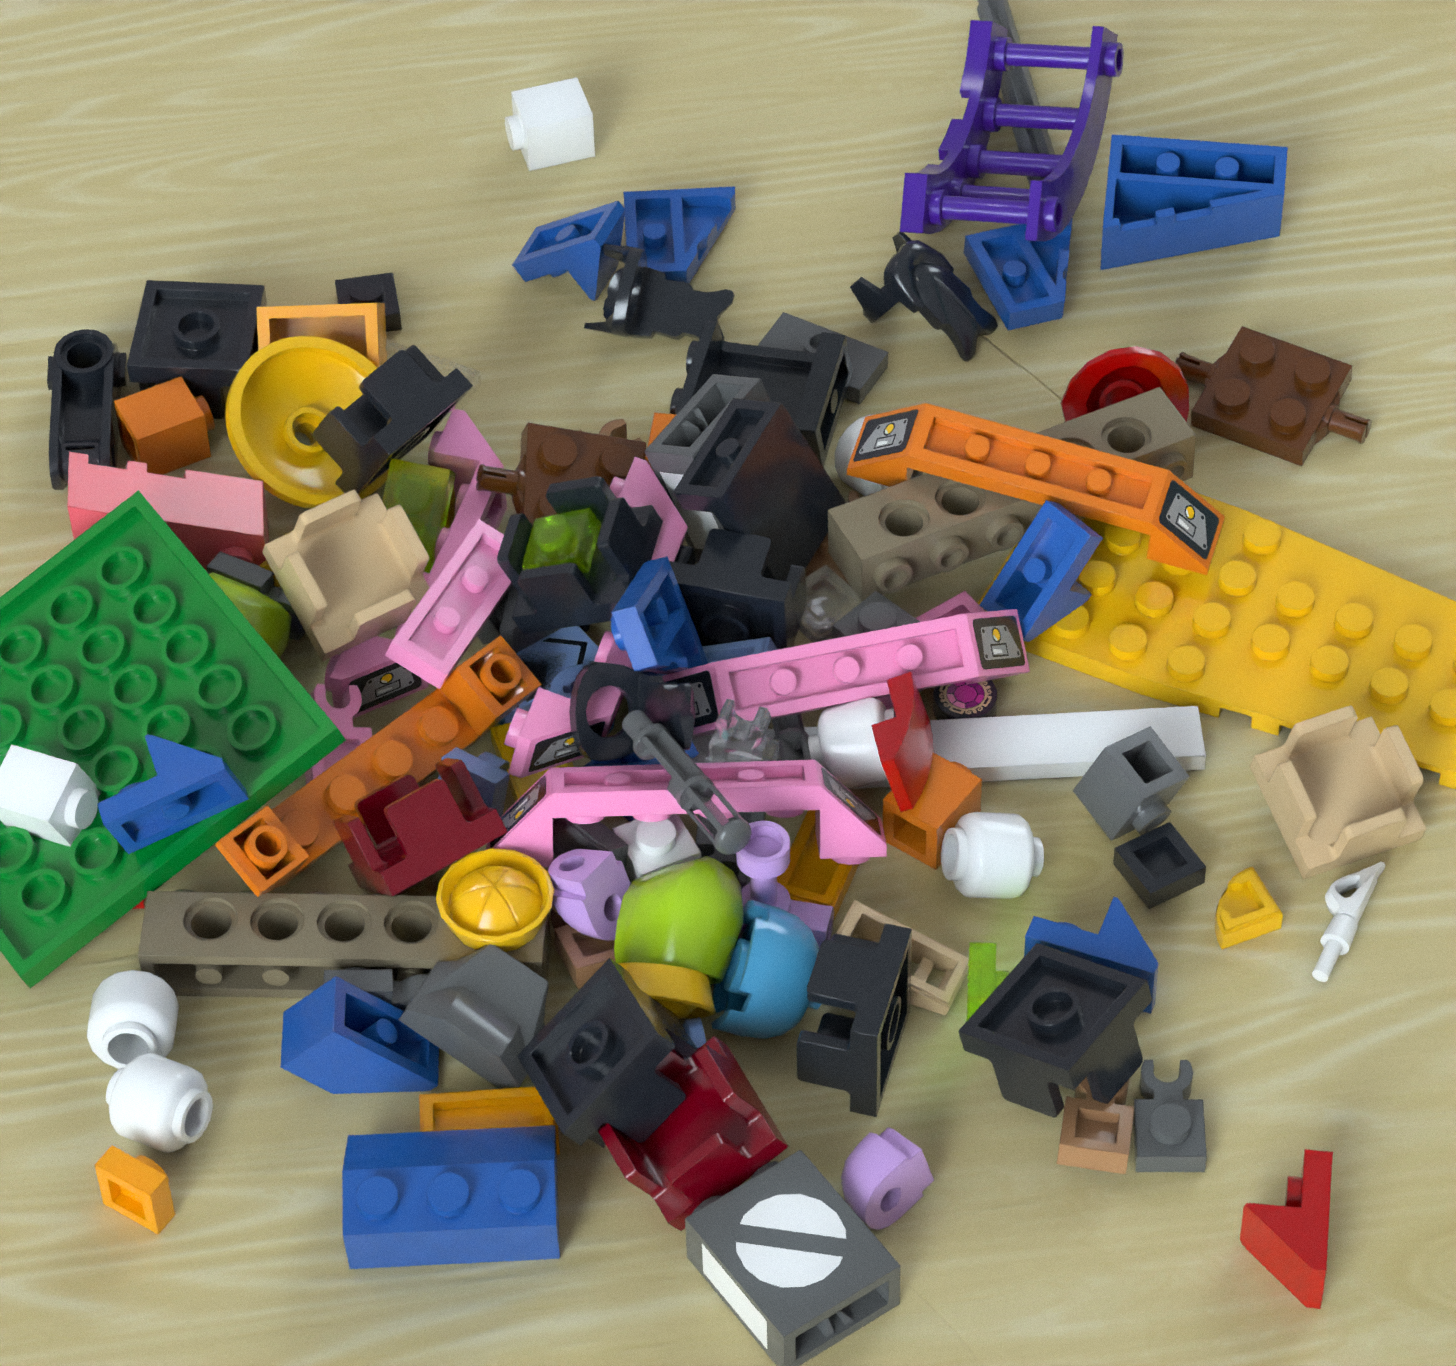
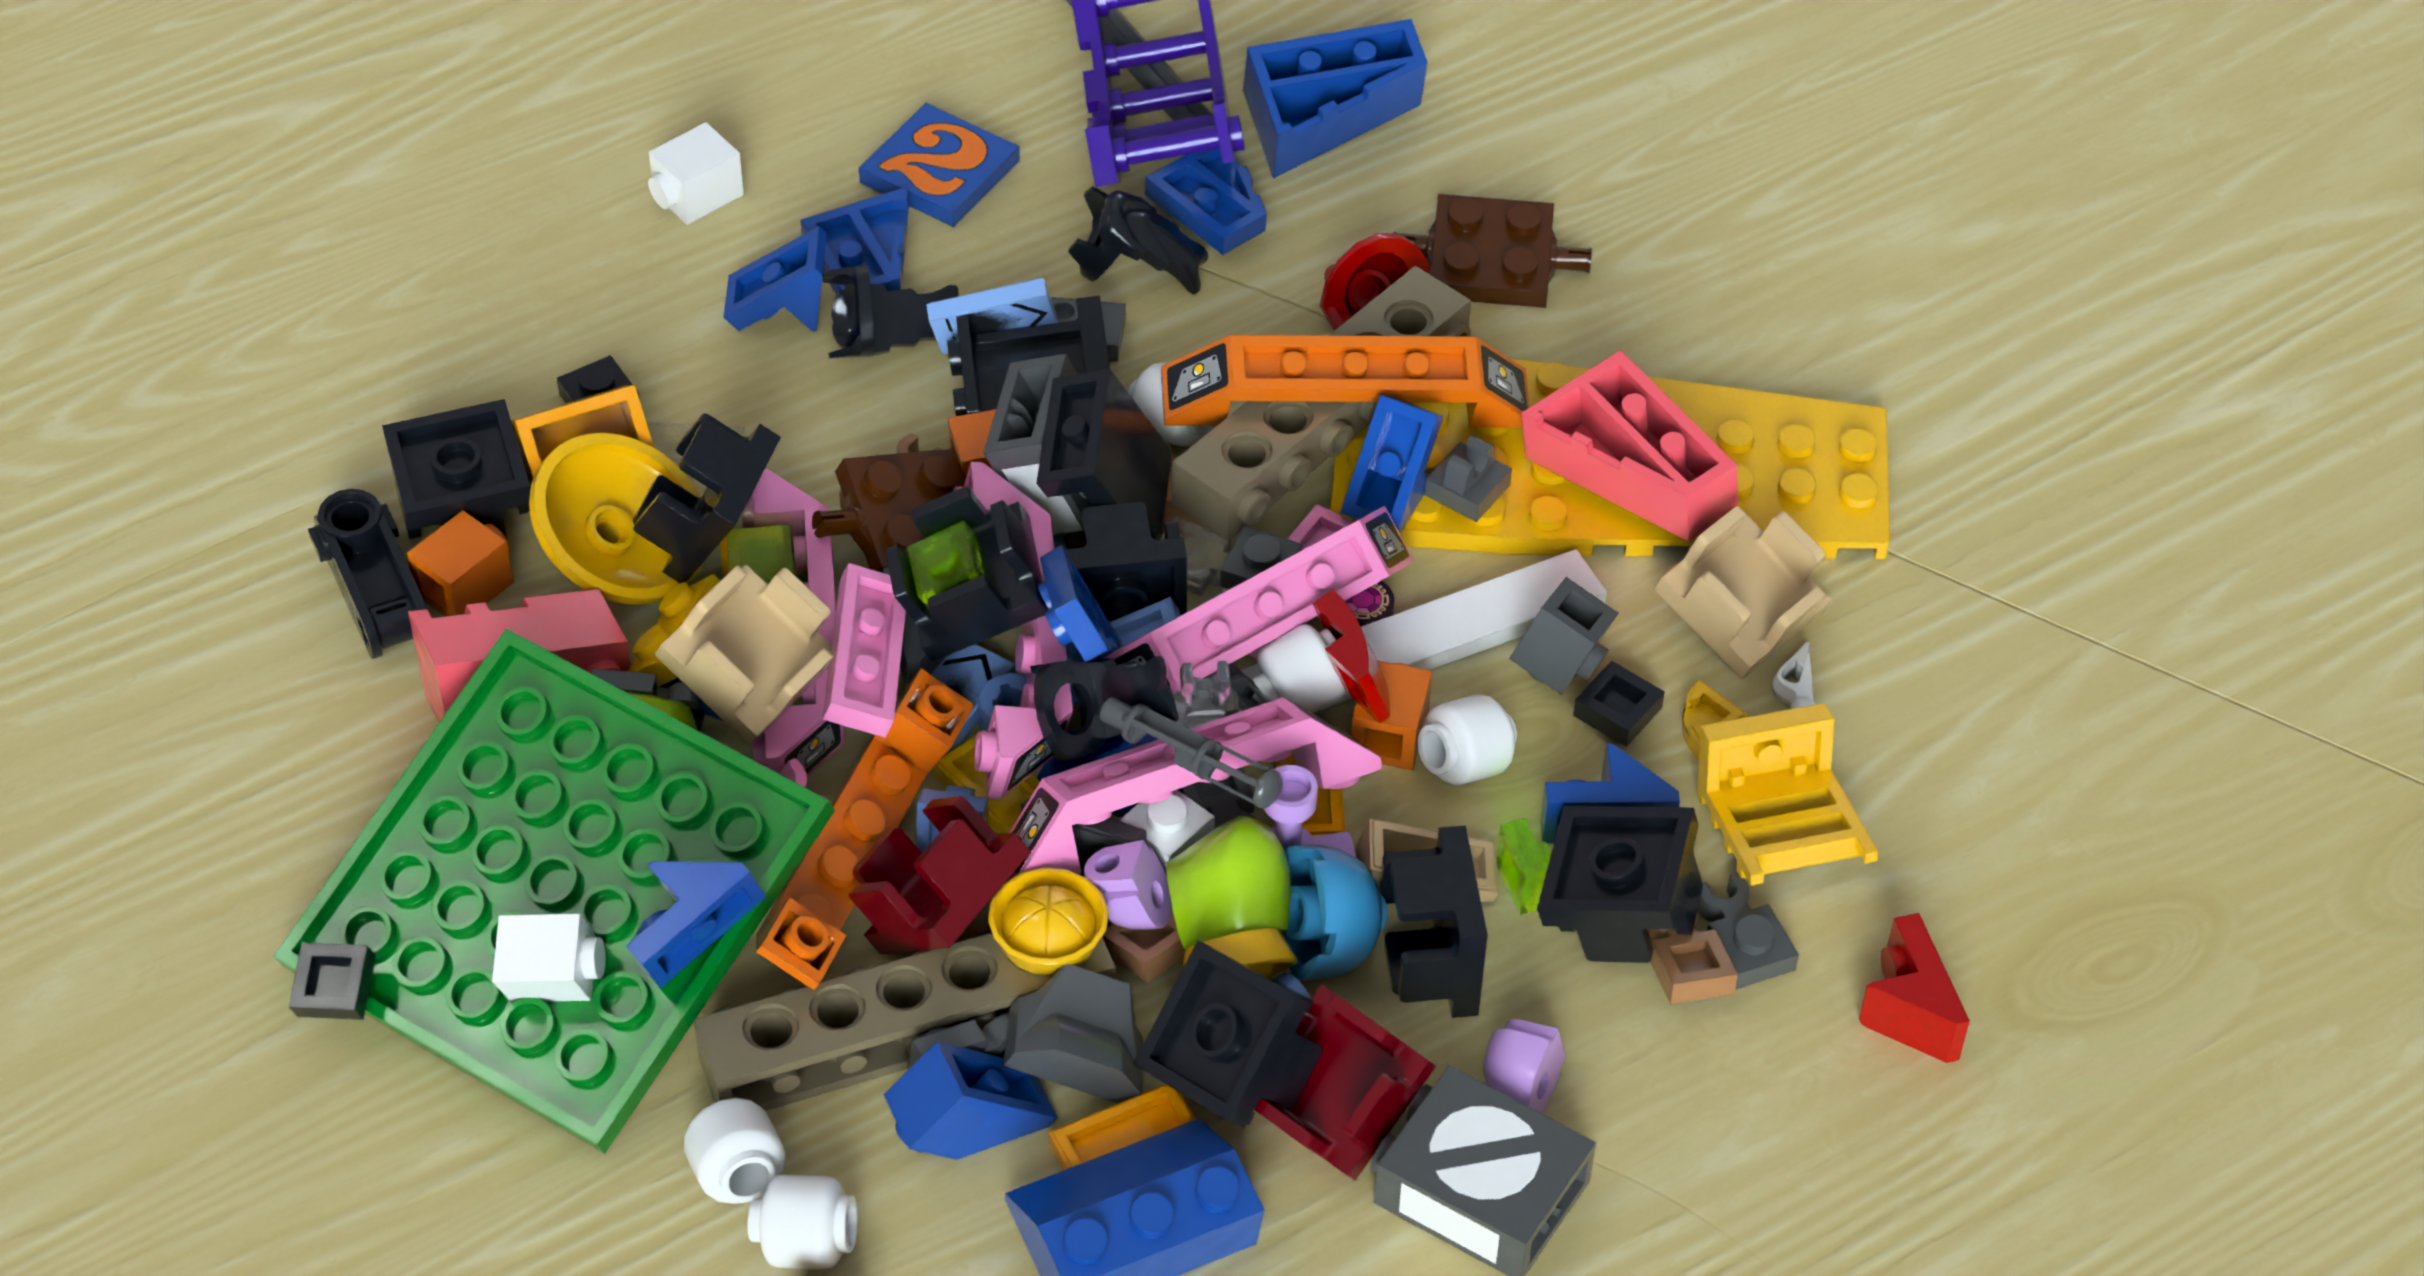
camera: 25 degrees left, 0 degrees up
(751, 323) = (993, 310): none -> light blue tile
(786, 174) = (940, 163): none -> blue tile
(1118, 608) = (1469, 479): none -> dark grey tile
(1264, 995) = (1777, 792): none -> yellow plate
(1280, 619) = (1633, 448): none -> coral wedge

